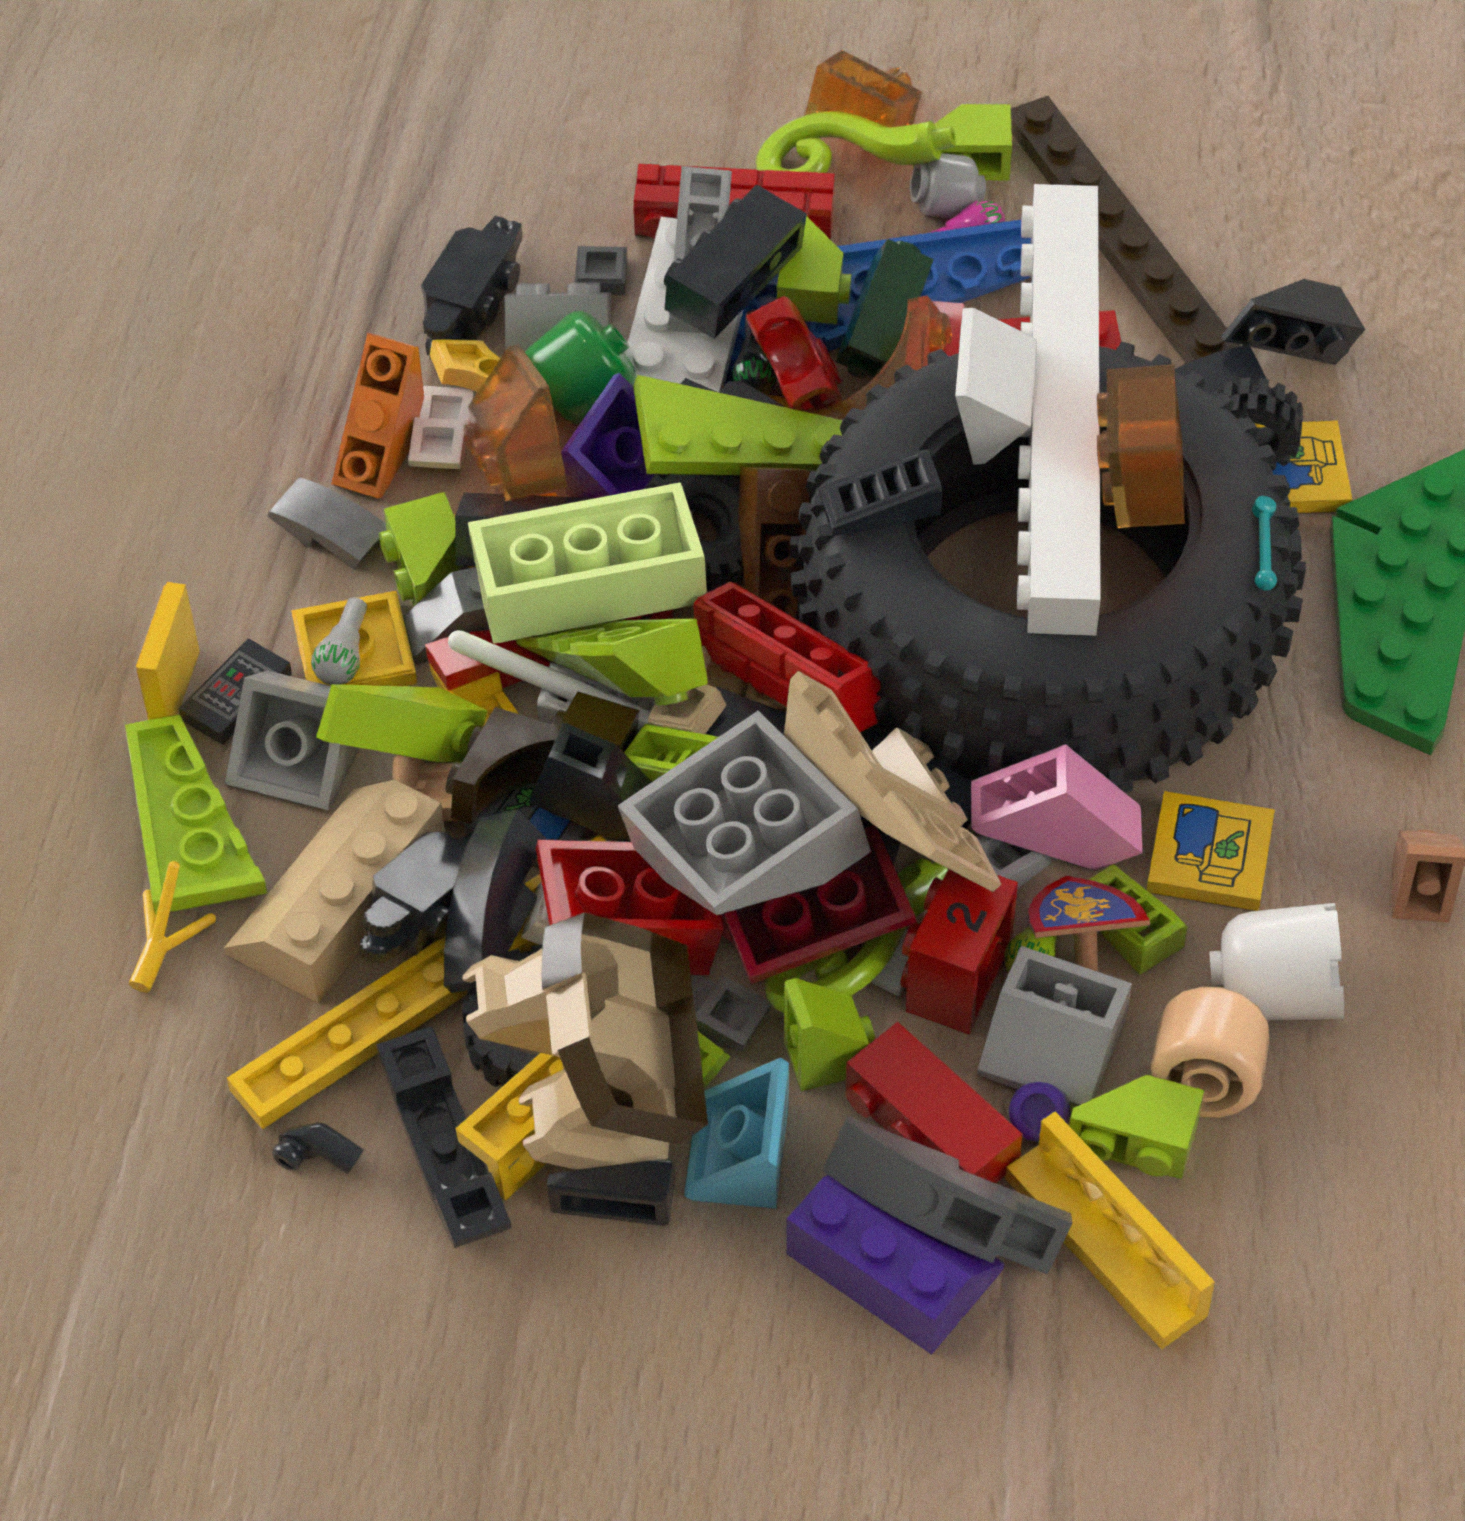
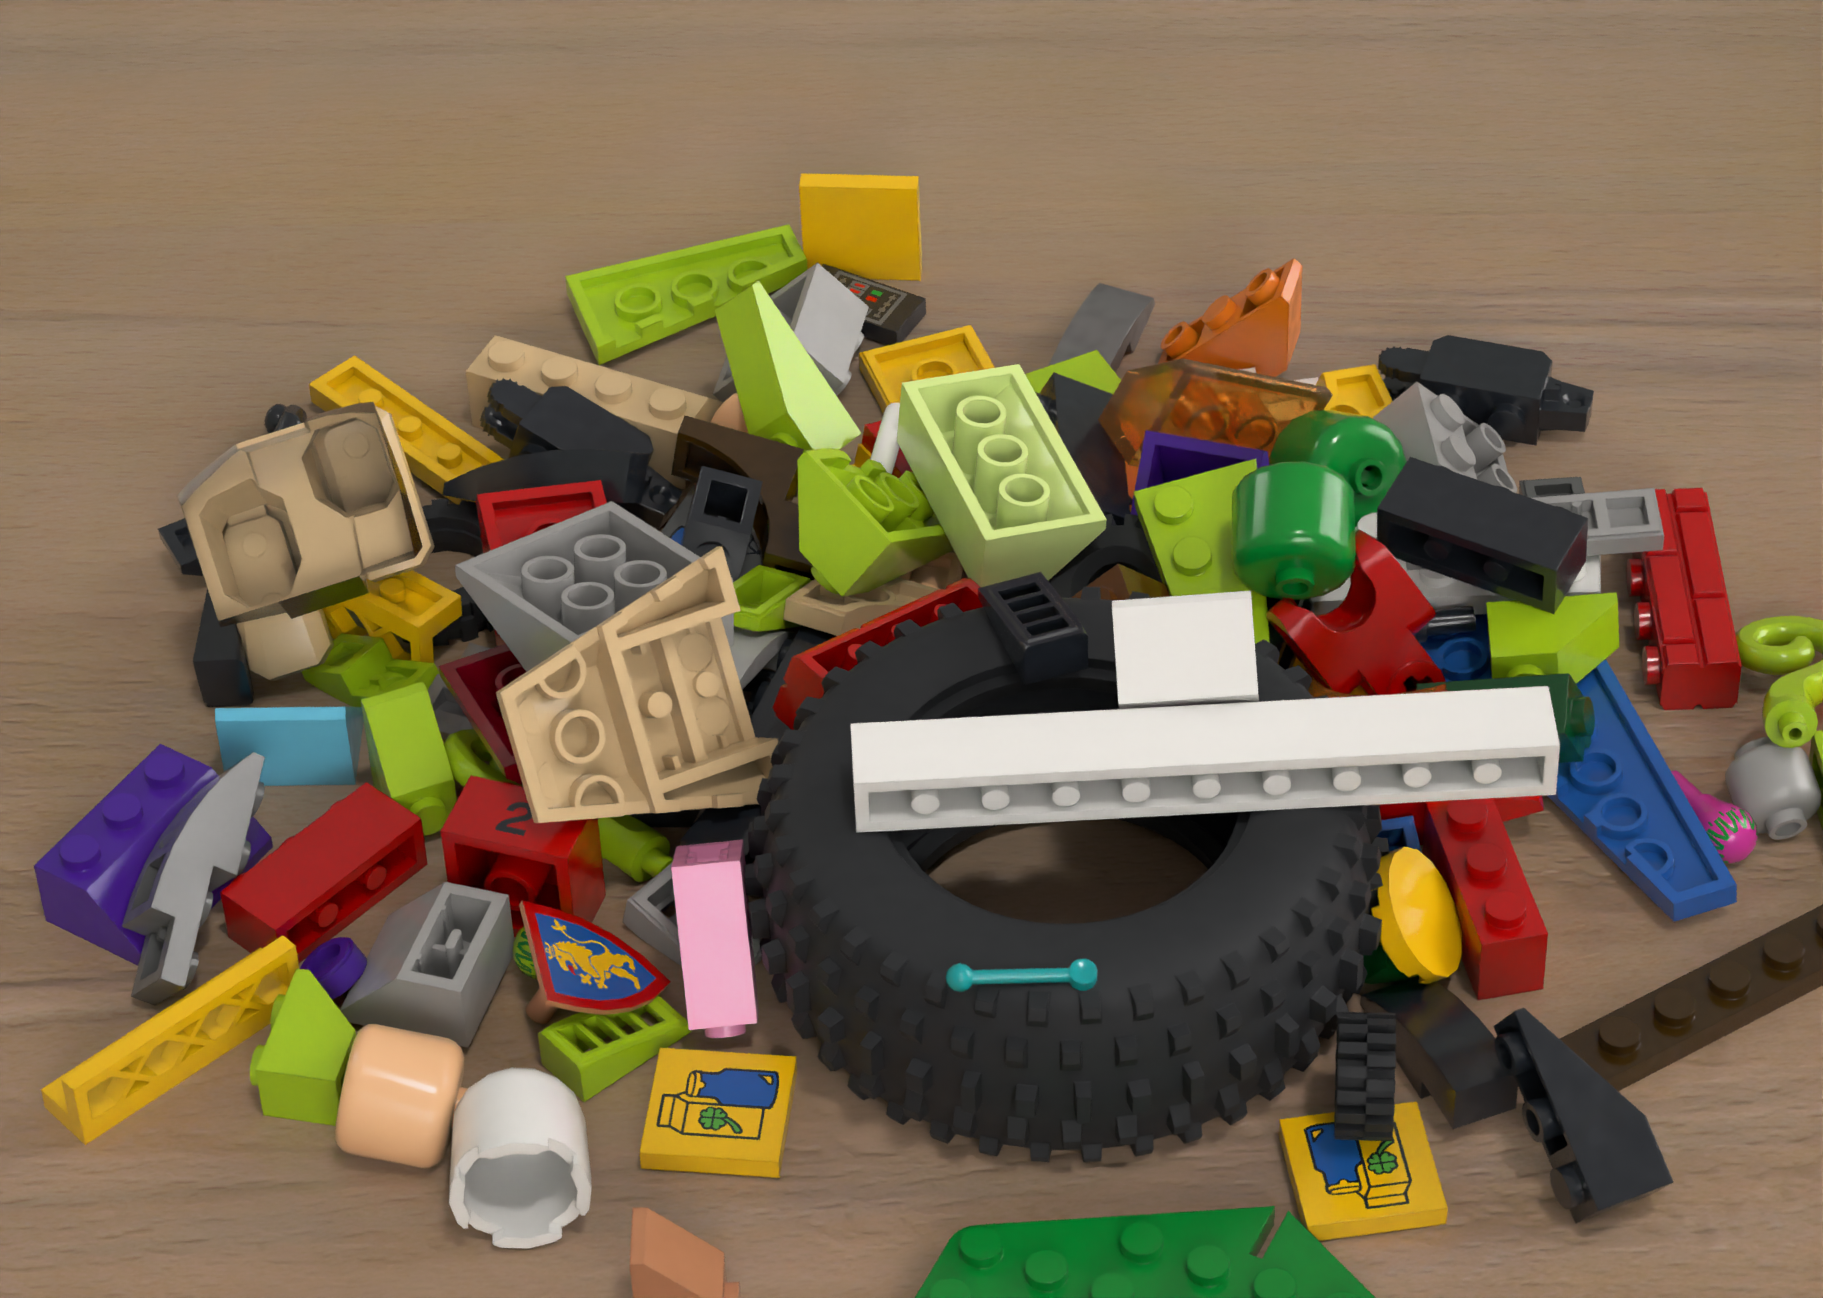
camera: 85 degrees right, 10 degrees down
(157, 944) = (526, 295): yellow plant -> none
(337, 655) = (894, 352): light grey piece -> none
(749, 353) = (1293, 530): none -> green head
(1142, 446) = (1108, 811): clear orange brick -> none

